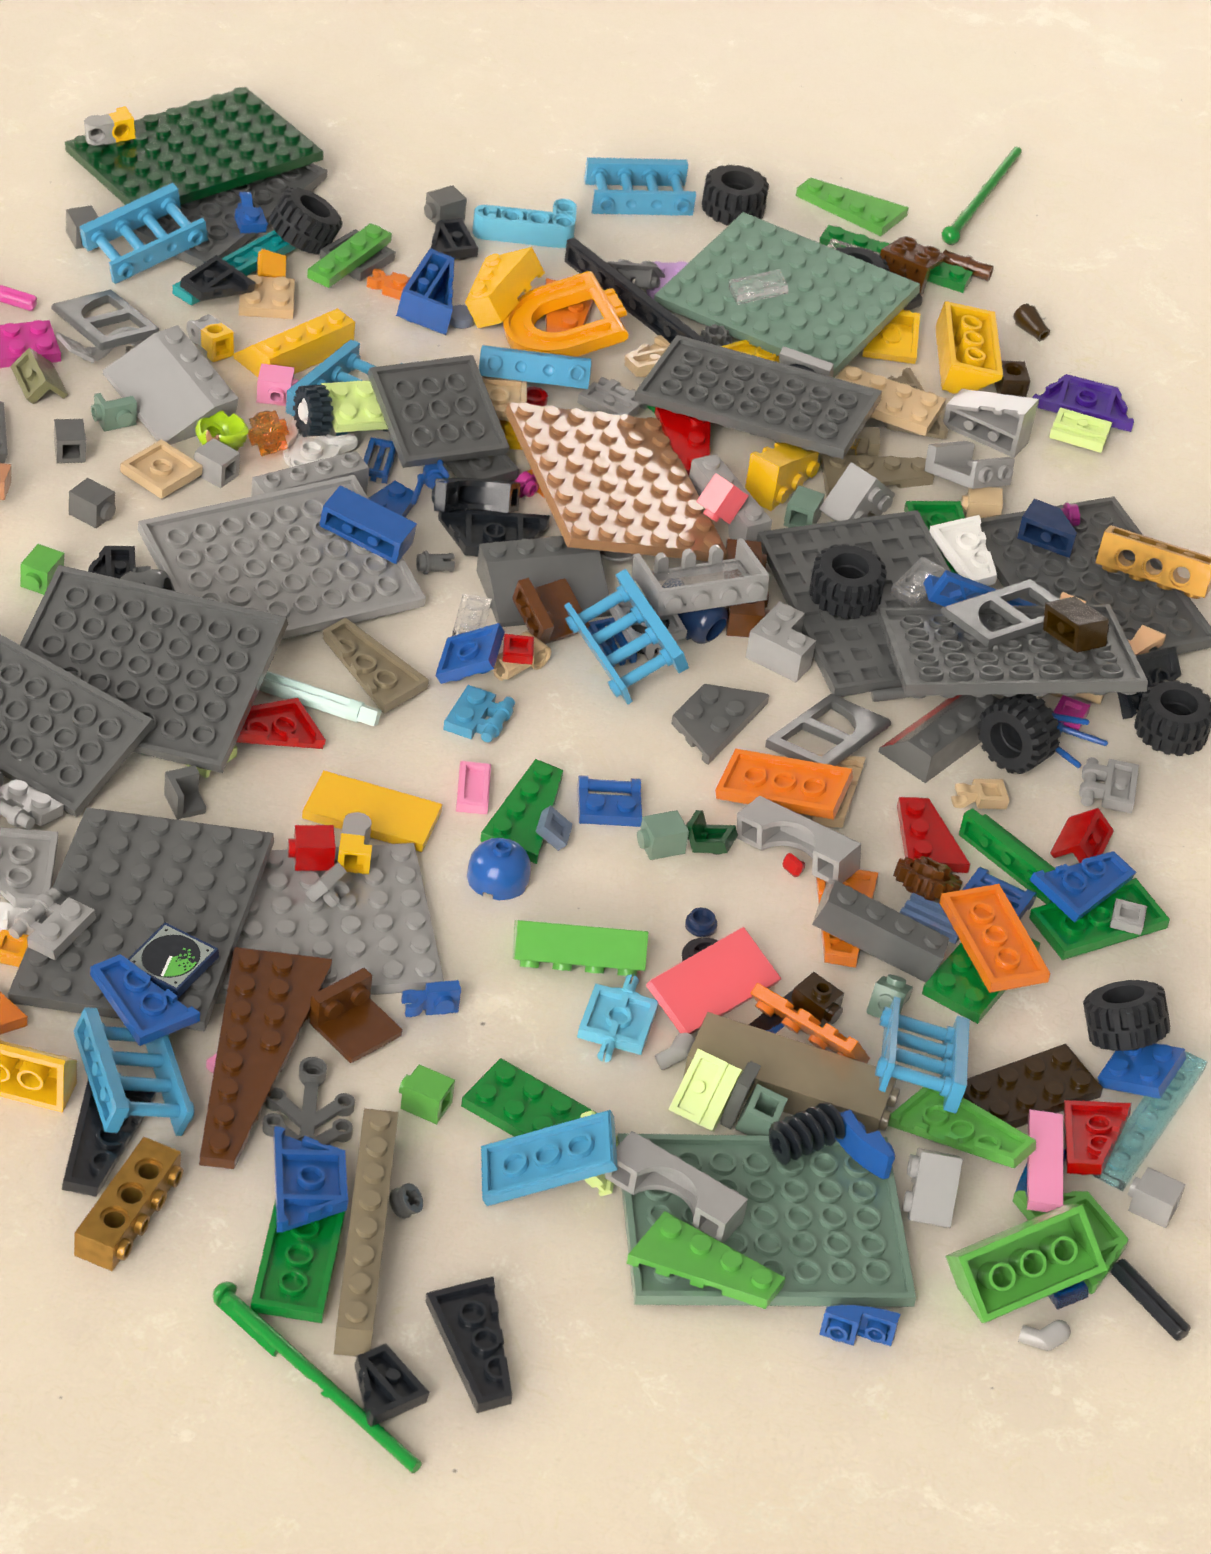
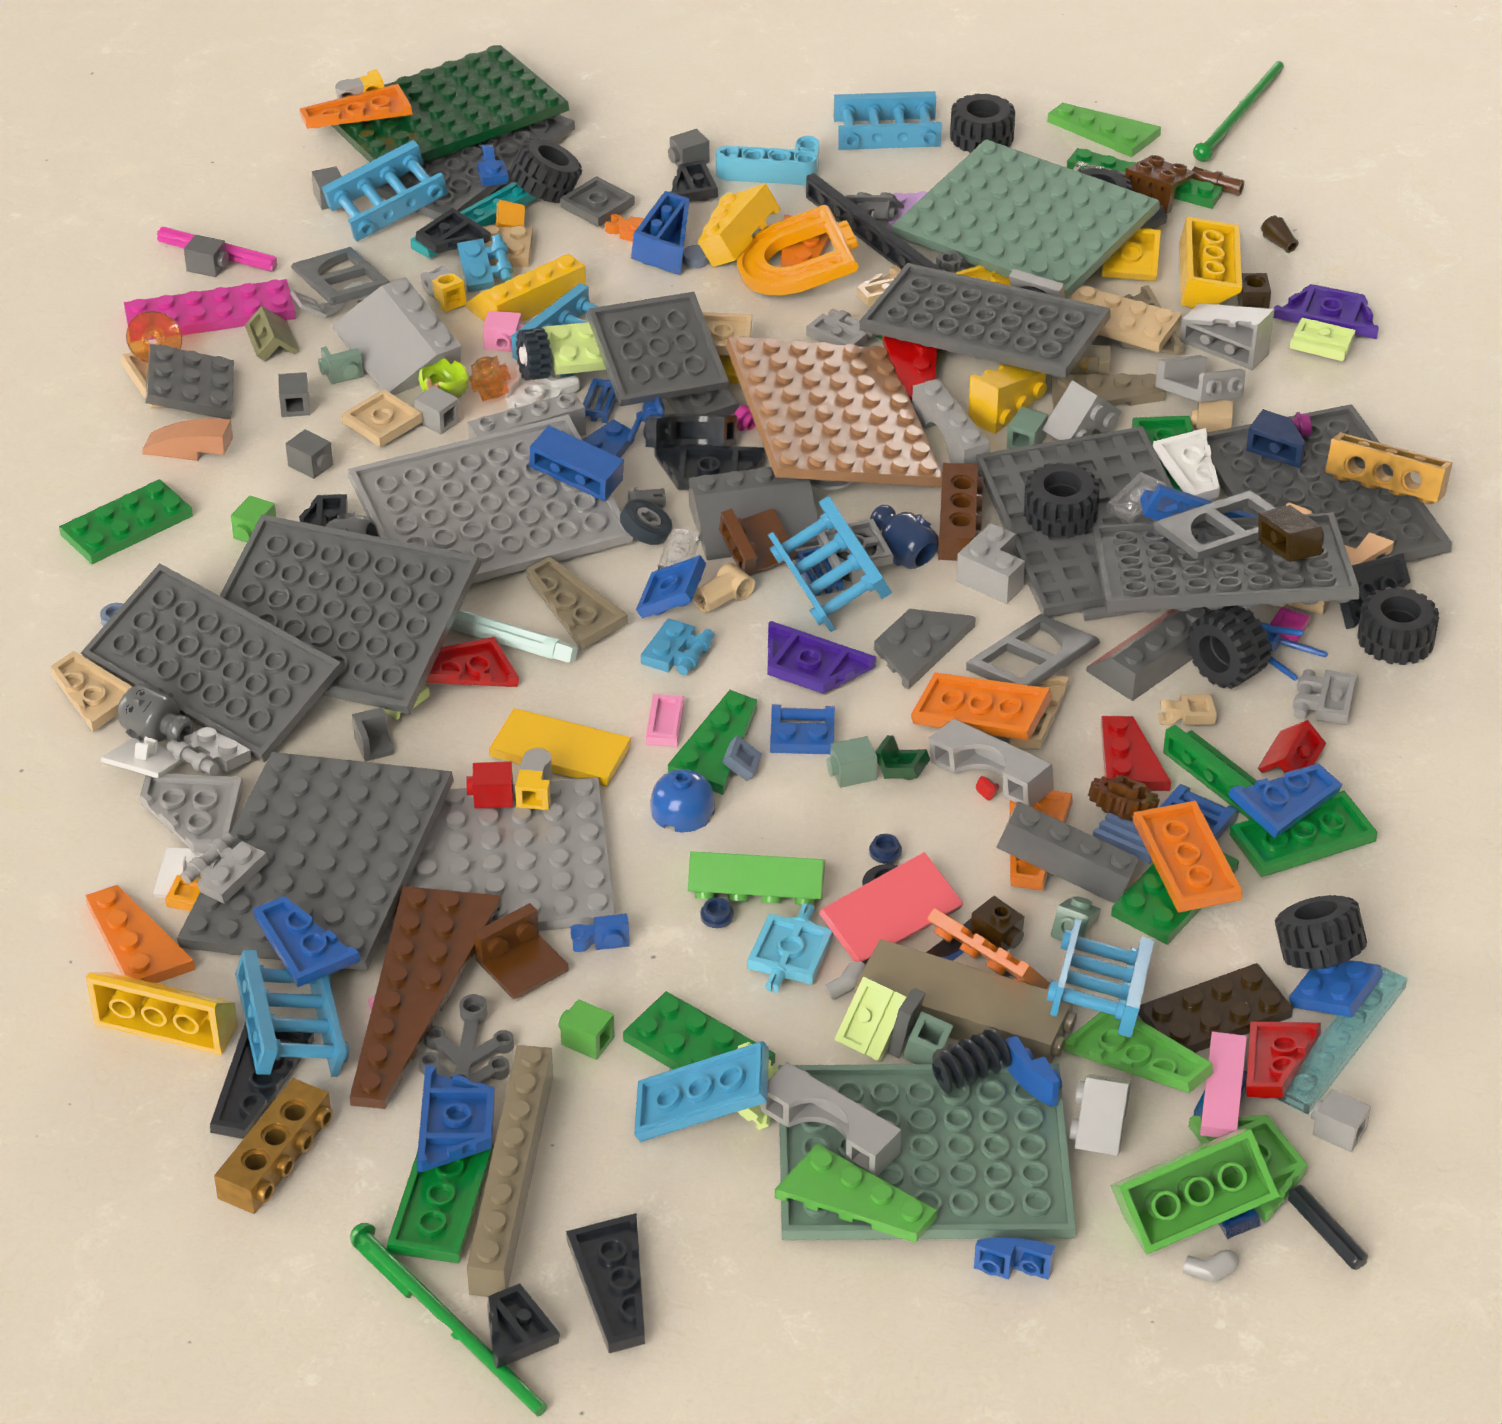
camera: 10 degrees right, 0 degrees up
(115, 144) = (365, 106): none -> orange wing
(174, 958) = (338, 899): tile -> none
(242, 315) = (476, 265): none -> dark azure plate
(327, 885) = (502, 821): light grey tile -> none
(349, 255) = (587, 202): bright green plate -> none
(406, 1200) = (563, 1136): dark grey bush -> none
(438, 586) = (646, 522): none -> black bush
(518, 649) = (718, 580): red tile -> none
(535, 367) = (761, 301): dark azure fence -> none
(537, 396) = (763, 330): red tile -> none
(543, 981) = (717, 913): none -> dark blue plate
(614, 732) = (813, 660): none -> dark purple wing
(703, 584) = (911, 509): light grey window -> none
(722, 499) = (938, 423): brick -> none
(758, 286) = (993, 211): clear plate -> none
(1128, 916) = (1332, 830): light grey tile -> none

